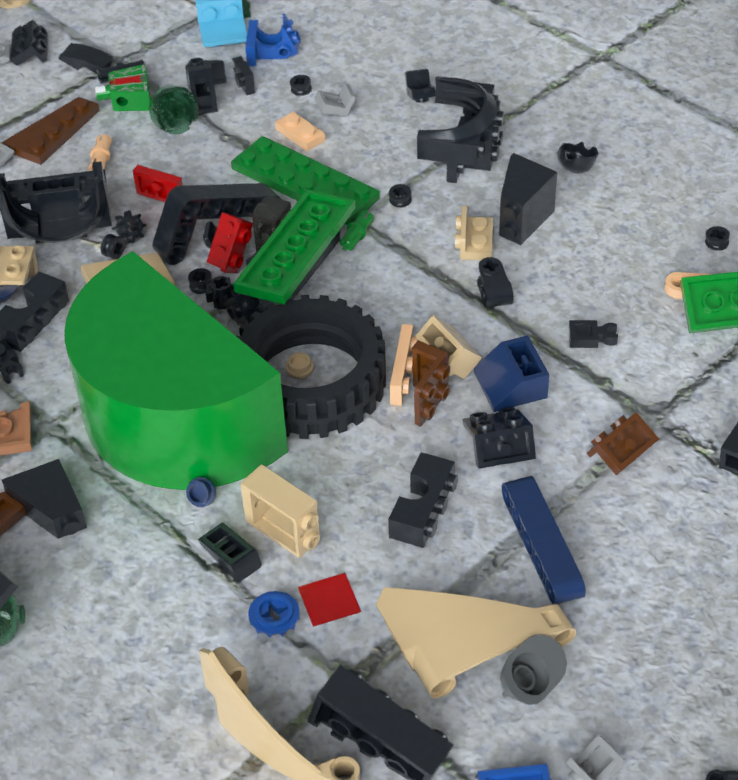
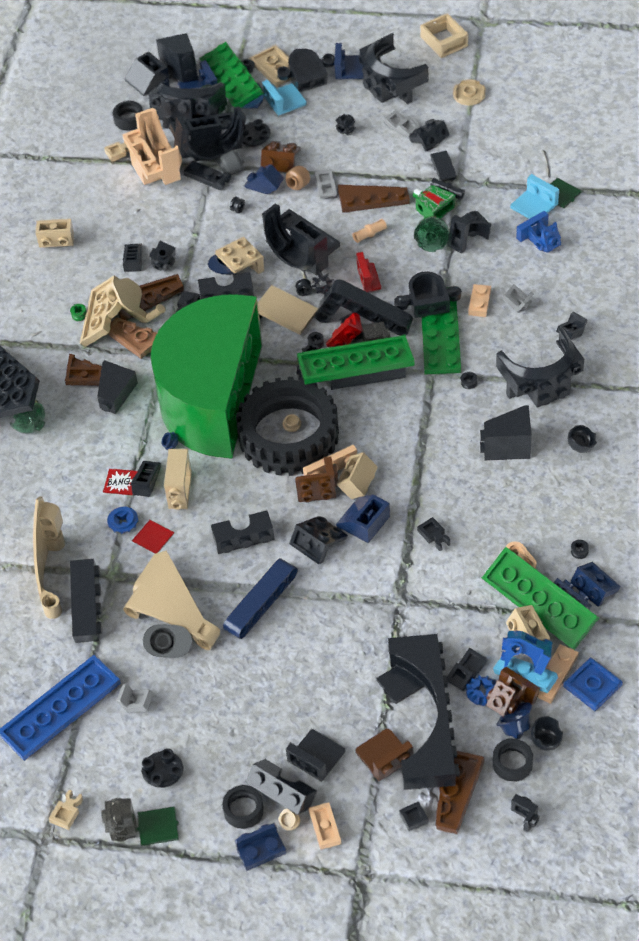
camera: 55 degrees right, 5 degrees up
(203, 584) = (119, 481): none -> sticker
(243, 75) = (497, 244): black plate -> none
(257, 153) = (428, 295): none -> black piece
(300, 85) = (524, 276): black bush -> none
(356, 230) = (417, 379): green axle -> none
(475, 236) = (464, 433): tan bracket -> none
(493, 283) = (430, 466): black piece -> none
(625, 443) = (360, 595): reddish brown bracket -> none

